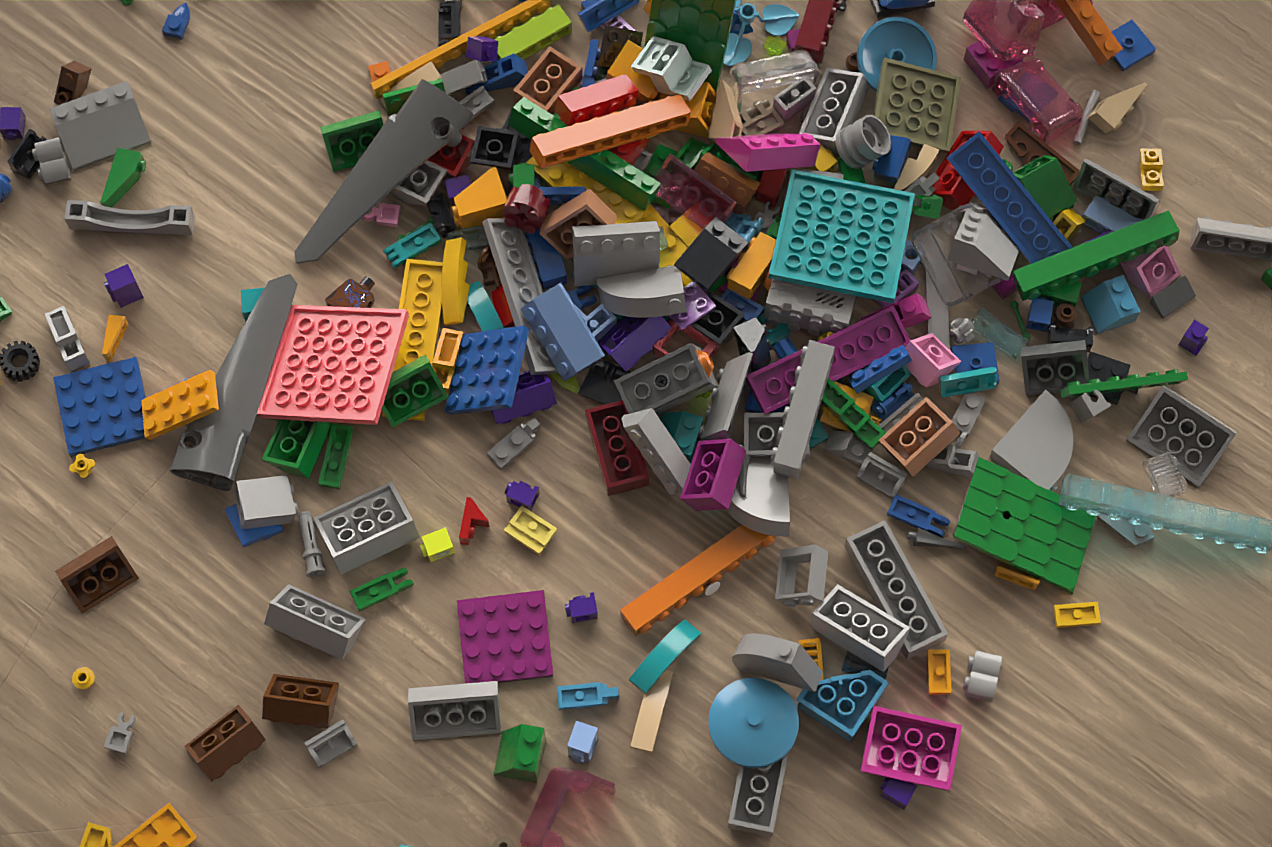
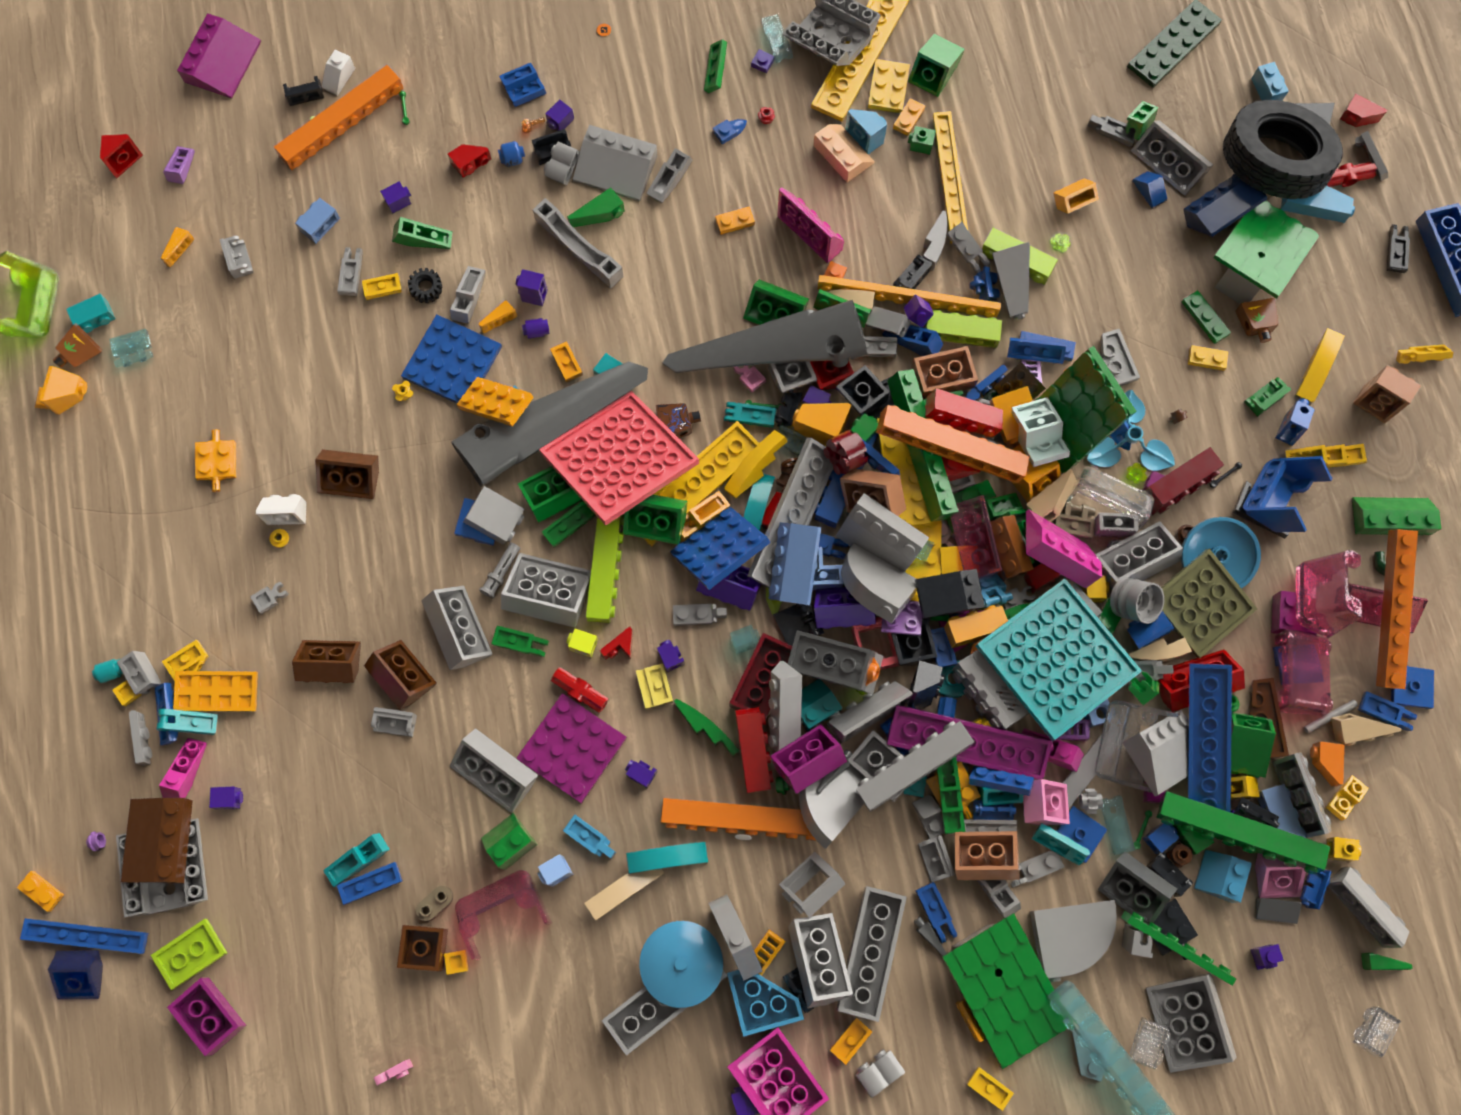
camera: 40 degrees right, 5 degrees up
(66, 650) = (282, 510): none -> white slope
(72, 82) = (622, 118): reddish brown slope -> none
(156, 319) = (535, 328): none -> dark purple brick
(159, 99) = (669, 175): none -> light grey slope
(210, 326) = (566, 361): none -> light orange plate
(252, 94) = (735, 220): none -> light orange plate
(324, 50) = (808, 226): none -> dark pink slope
(401, 470) = (605, 571): none -> lime brick
(469, 585) = (579, 690): none -> red piece
(572, 430) = (744, 639): none -> clear light blue brick
(595, 527) = (701, 723): none -> green slope
(660, 509) = (753, 751): none -> red brick
(708, 520) = (781, 786): none -> green plate
(1090, 233) = (1254, 812): none -> black hinge
(1114, 152) = (1329, 761): none -> orange slope
(1123, 79) = (1386, 711): none -> blue hinge
(1183, 209) = (1344, 849): none -> yellow brick
(1189, 263) = (1313, 896): none -> blue hinge

